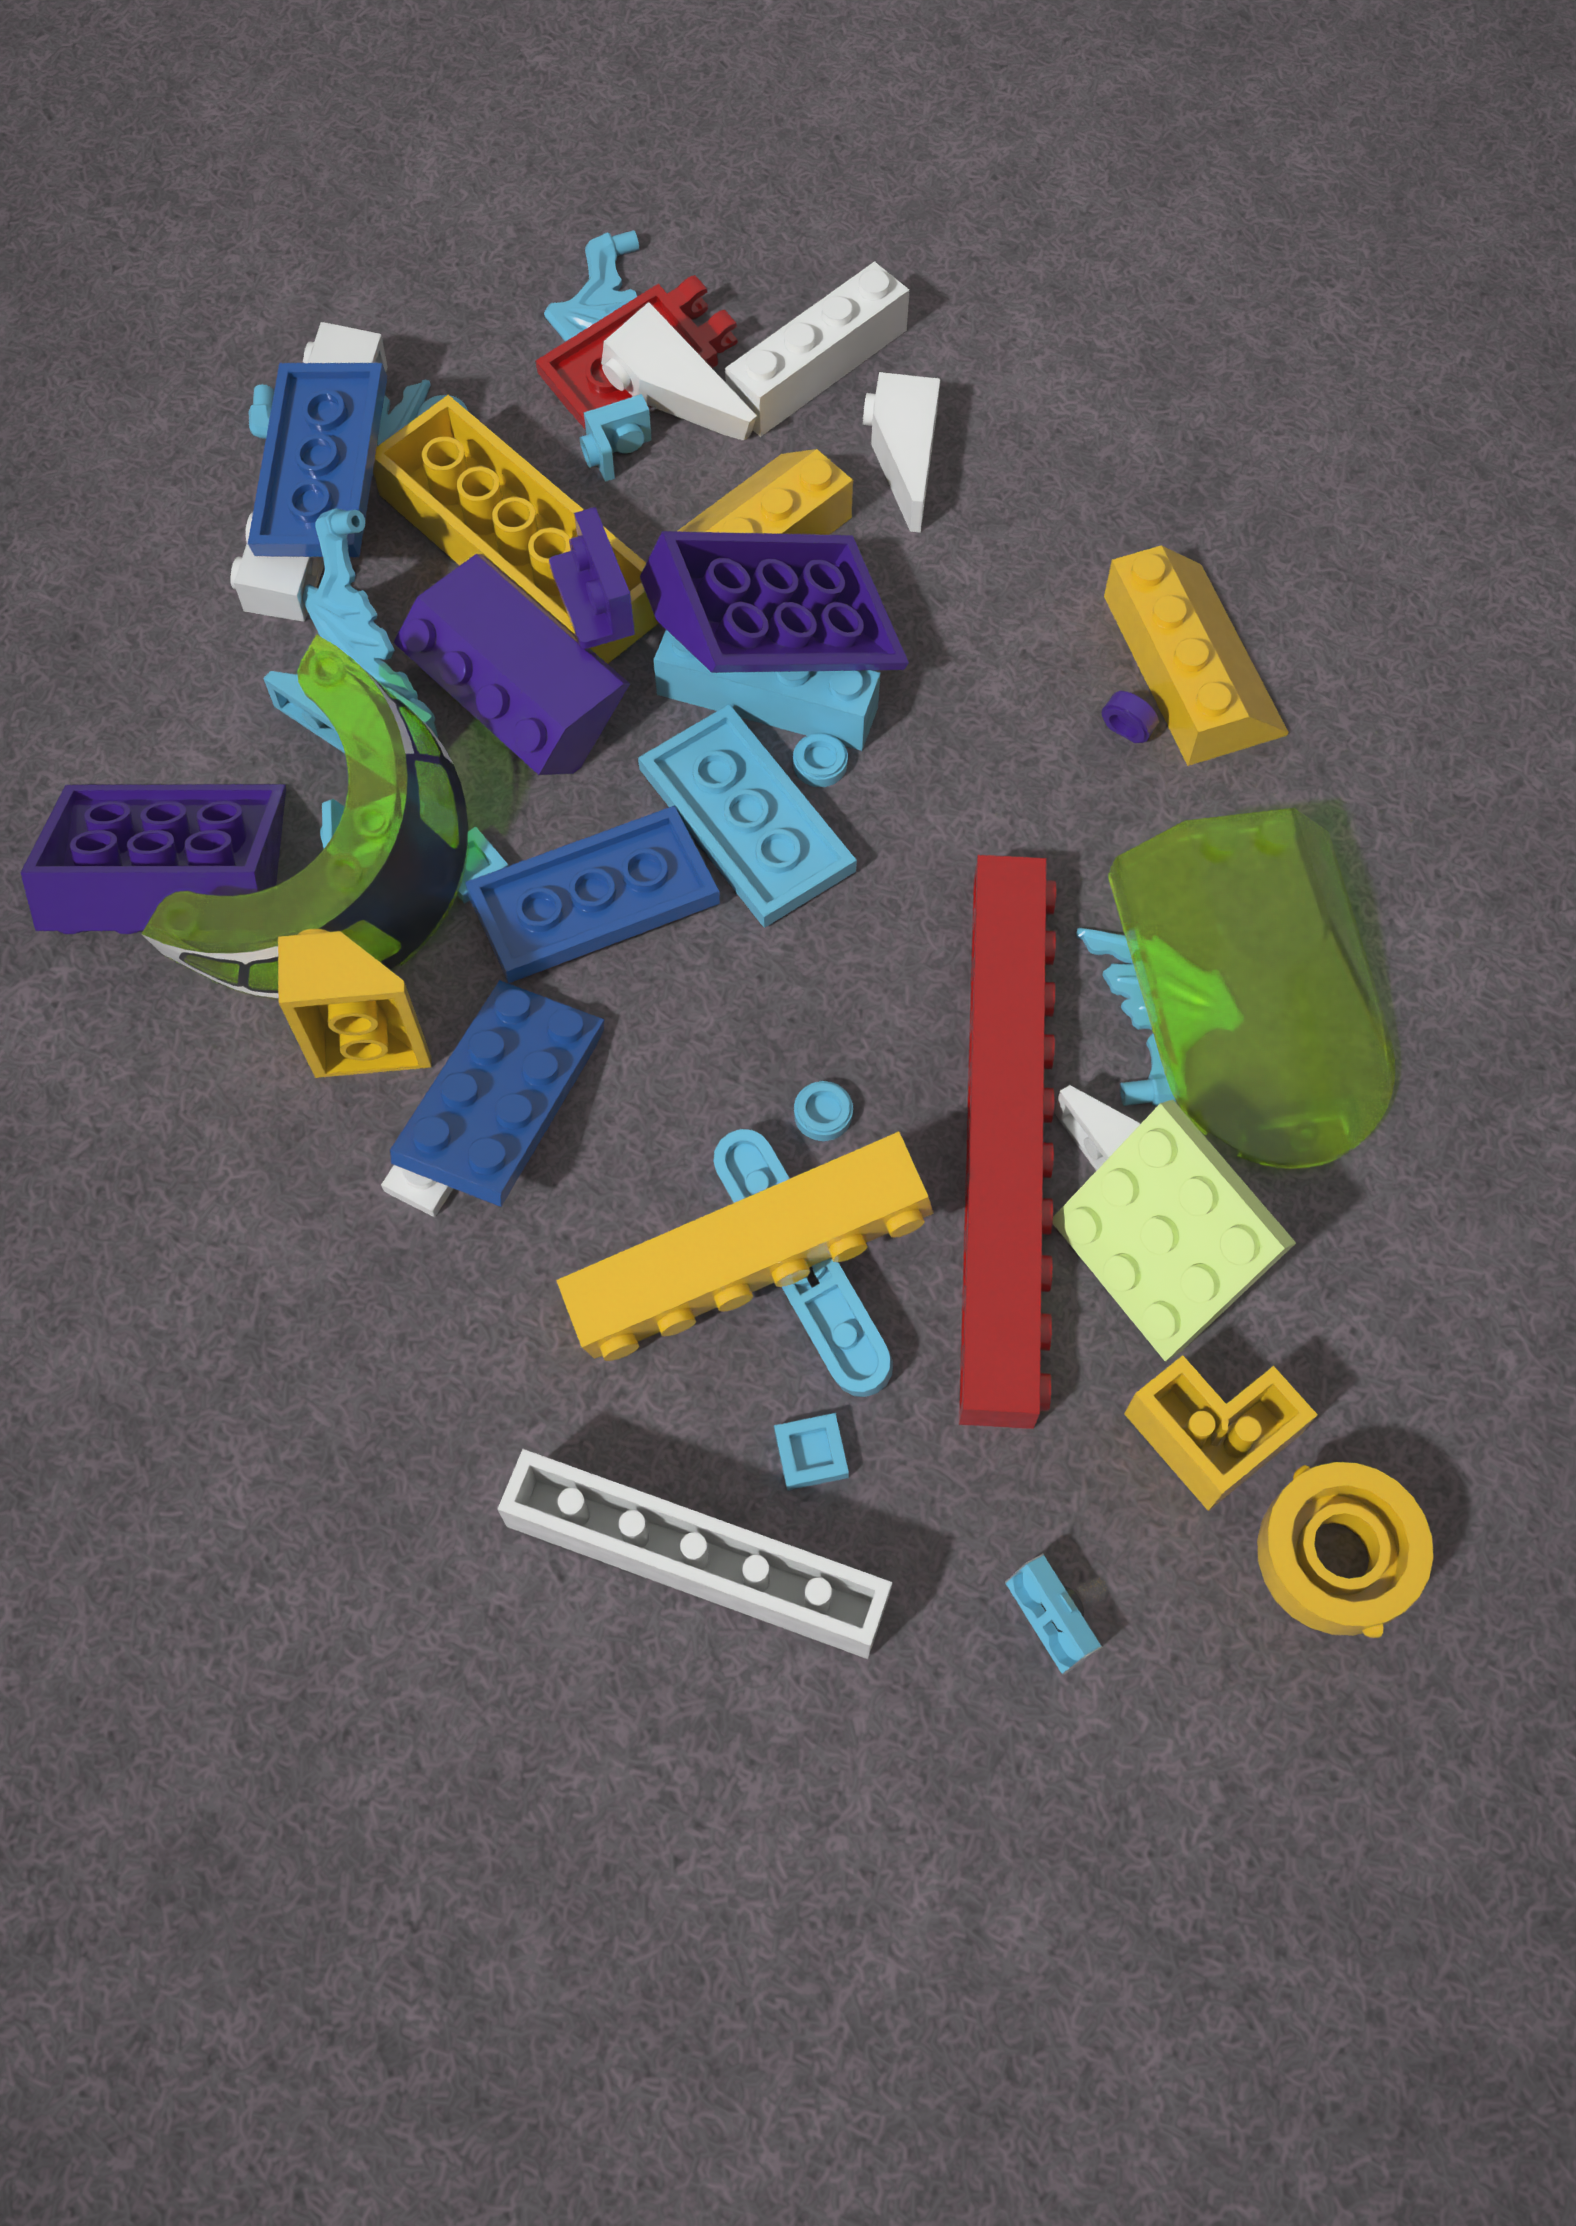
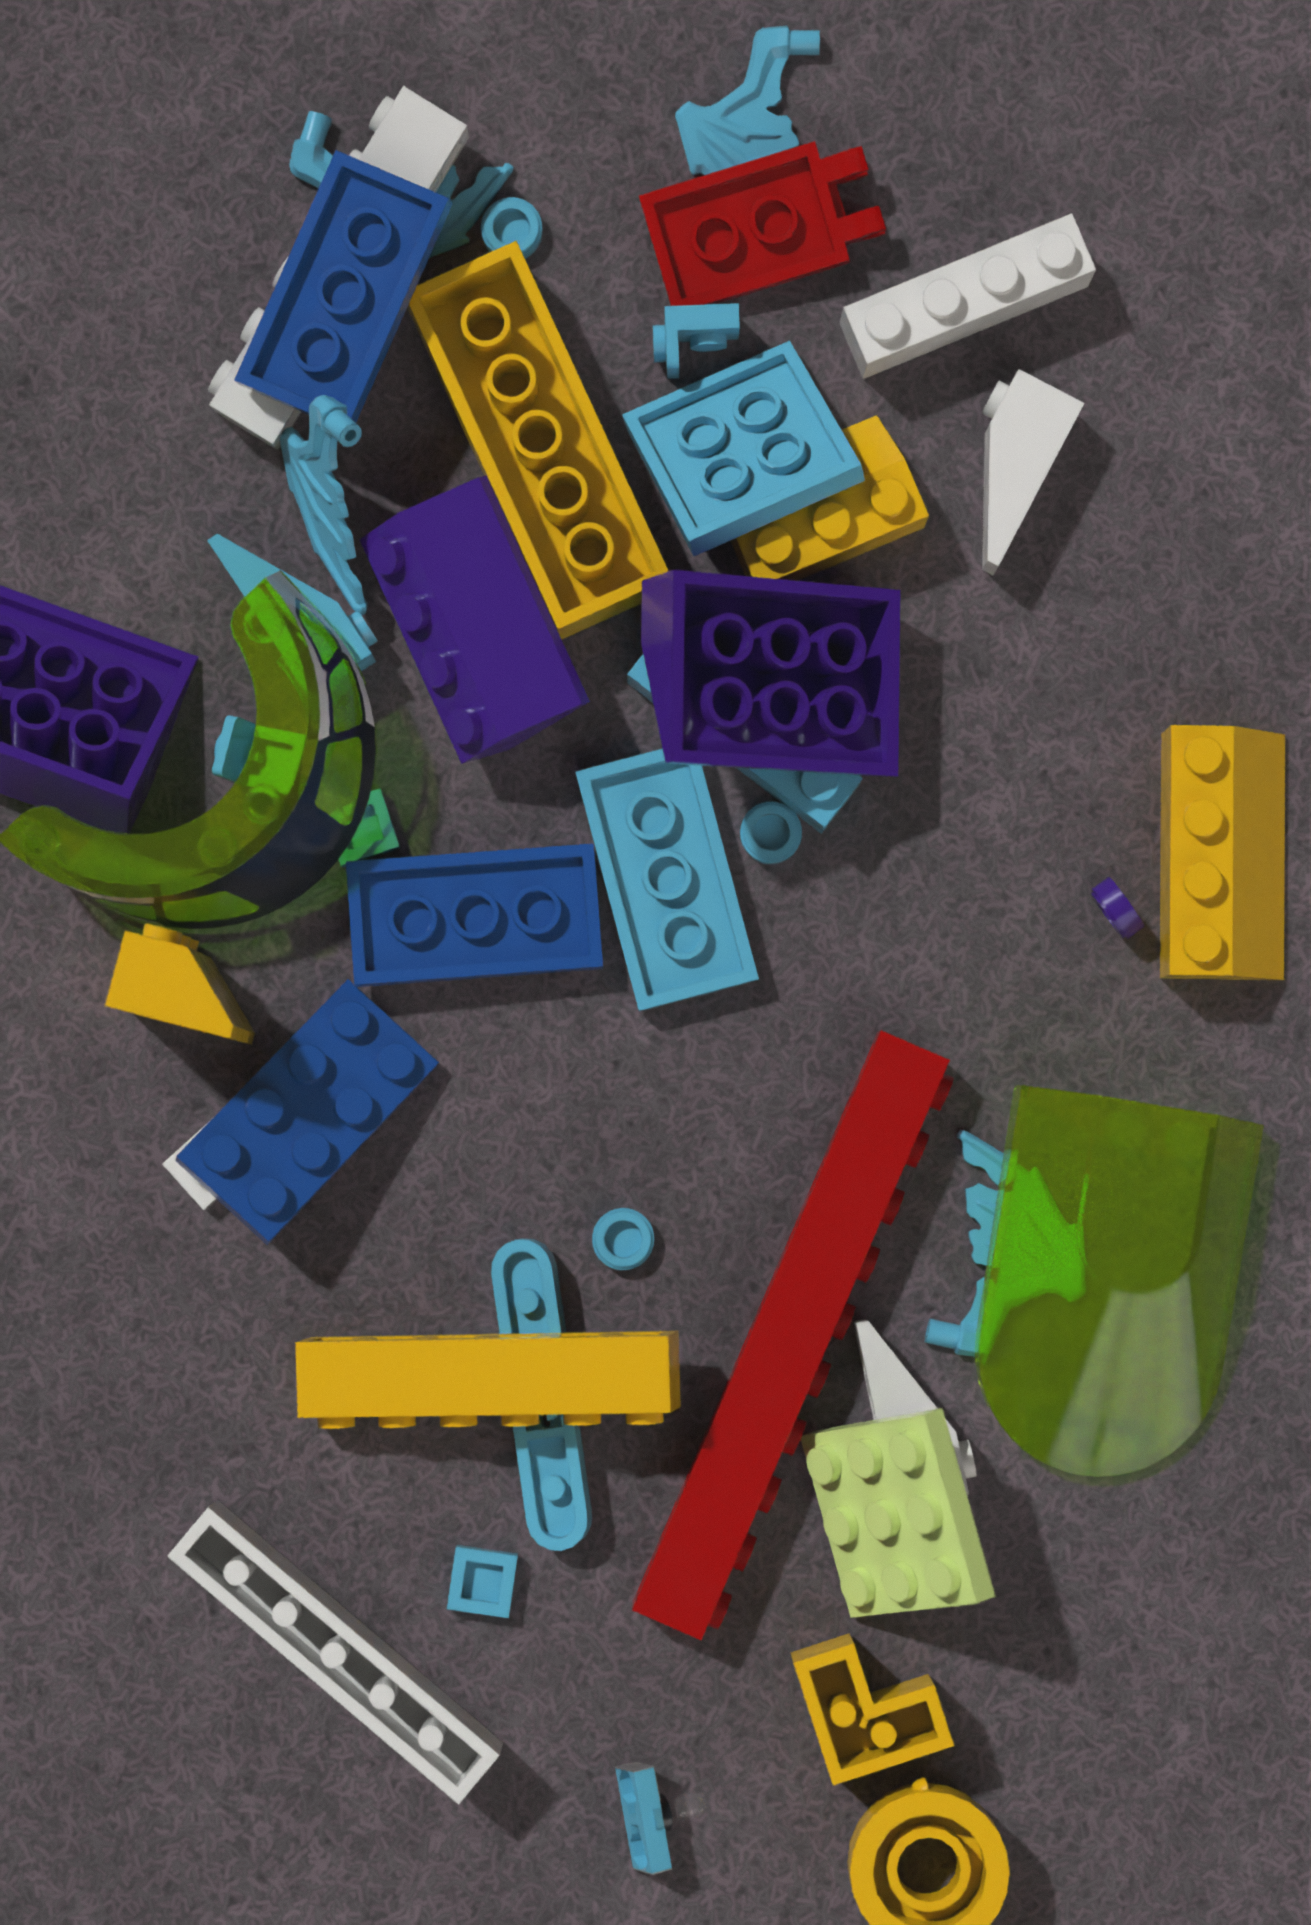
camera: 20 degrees right, 20 degrees up
(593, 584) = (582, 582): dark purple bracket -> none
(657, 362) = (775, 282): white slope -> none
(688, 482) = (743, 448): none -> medium azure plate

